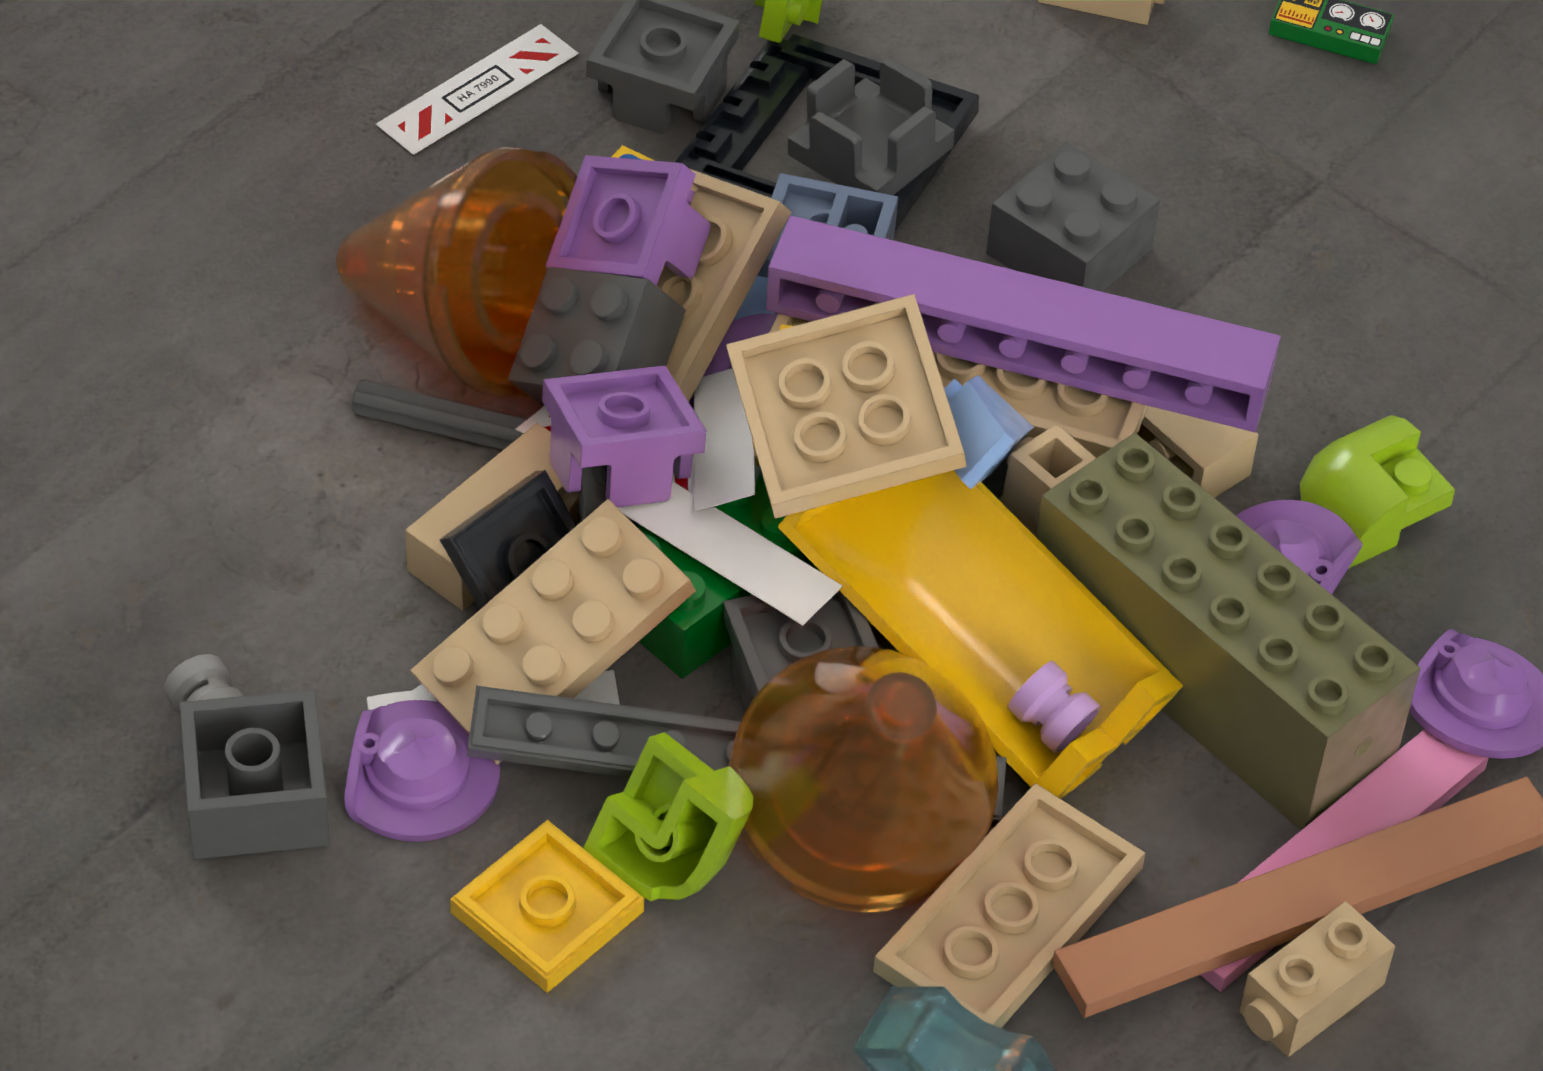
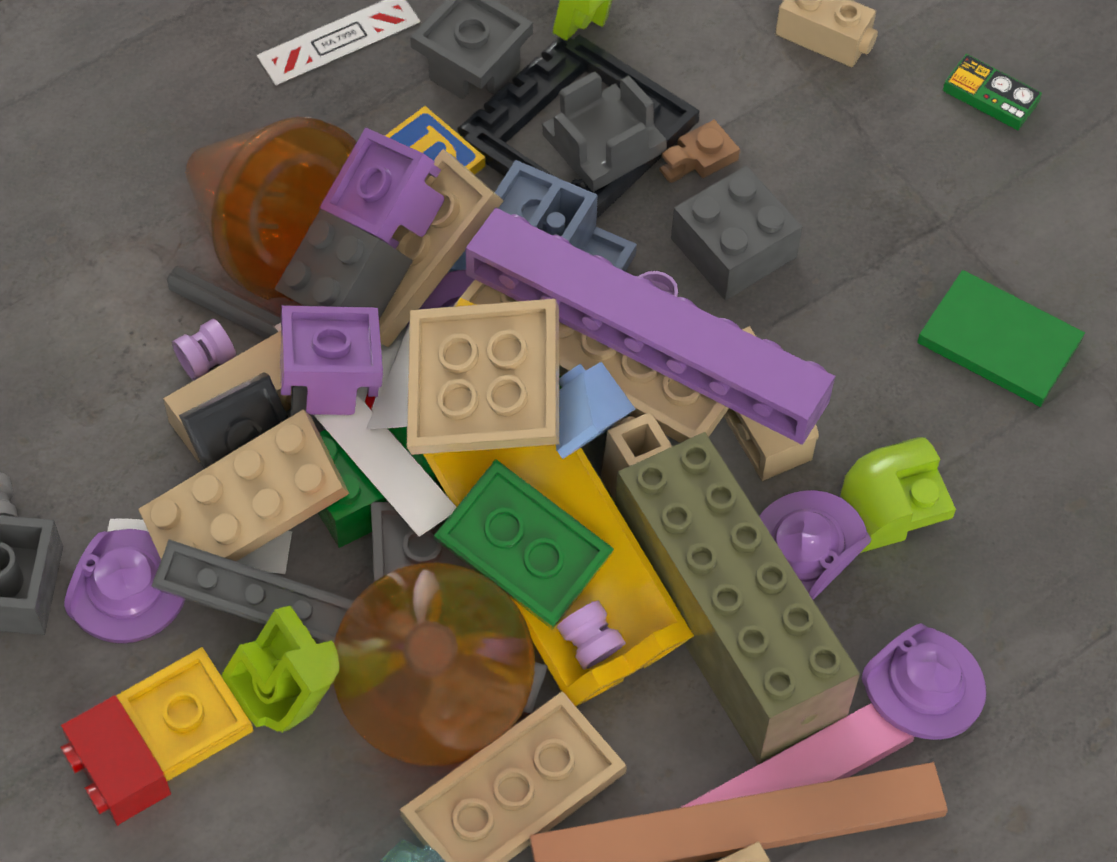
camera: 15 degrees right, 10 degrees up
(432, 471) = (203, 349): none -> lavender wheel
(480, 970) = (115, 761): none -> red brick
(940, 608) = (524, 543): none -> green tile
(993, 143) = (701, 150): none -> medium nougat plate
(1437, 297) = (1001, 338): none -> green tile

